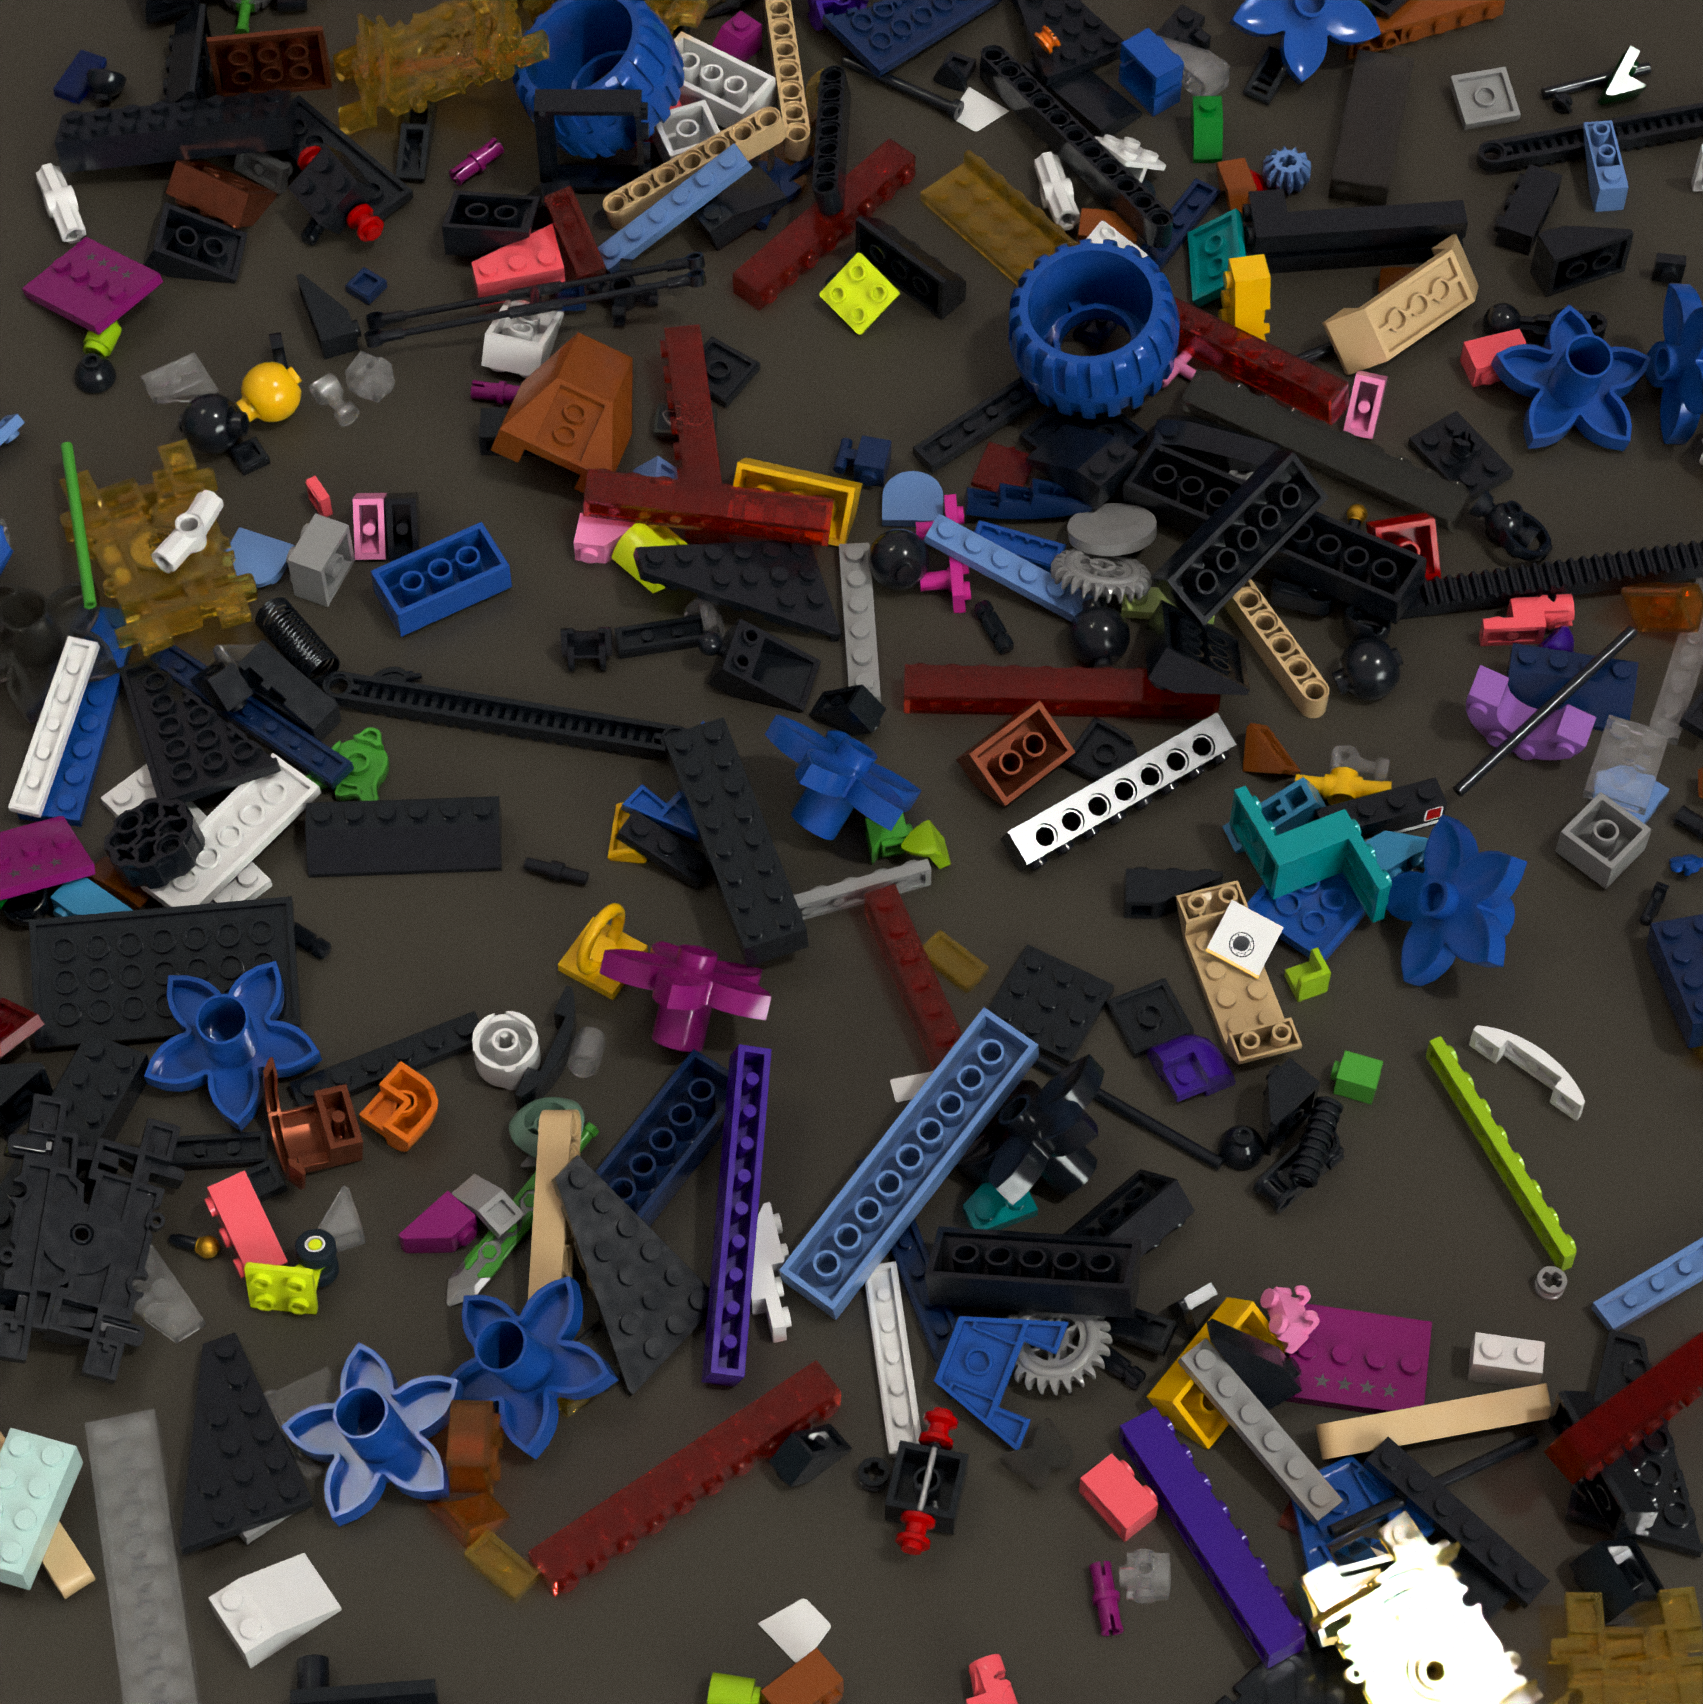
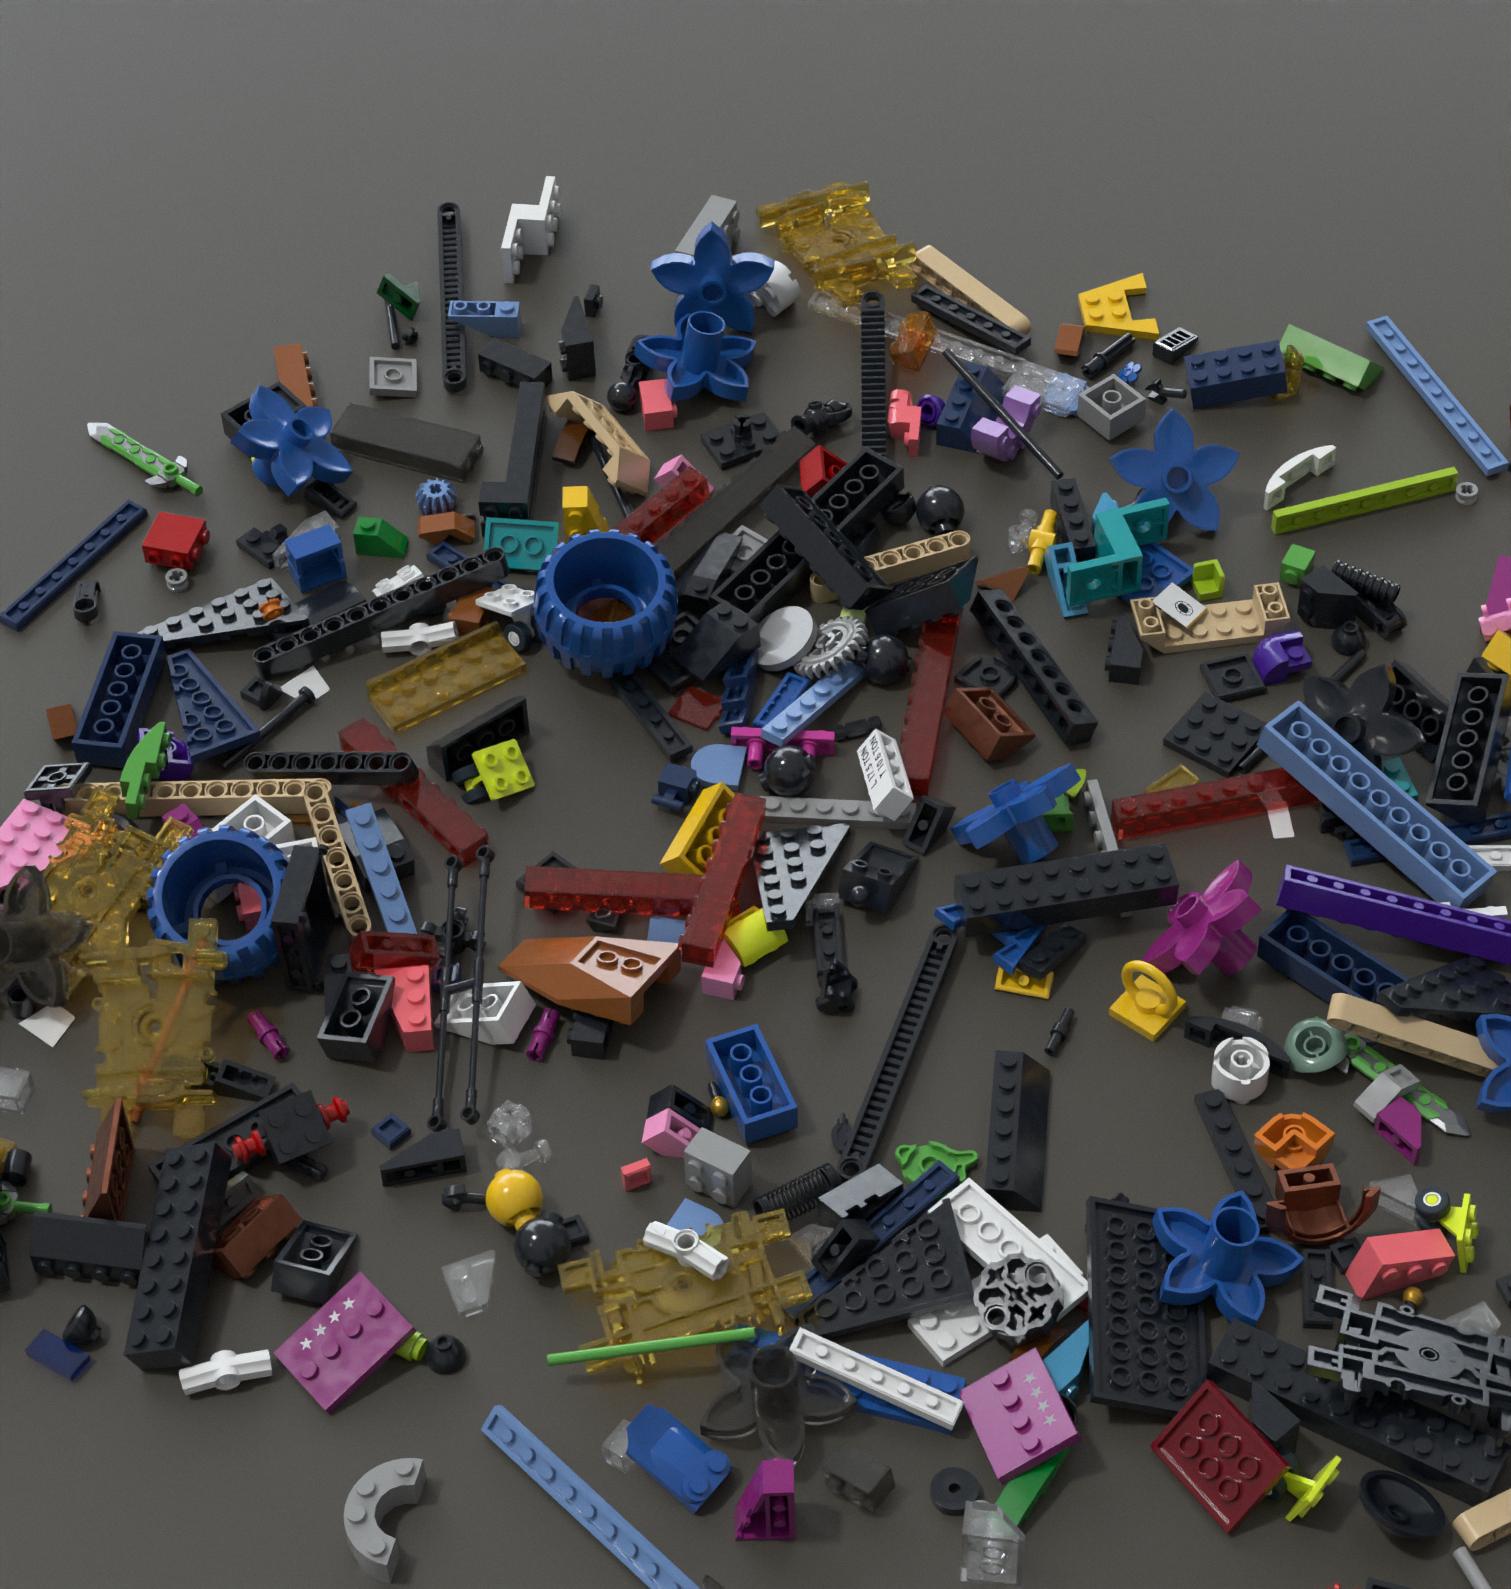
camera: 80 degrees left, 10 degrees down
(898, 648) = (885, 775): none -> white brick

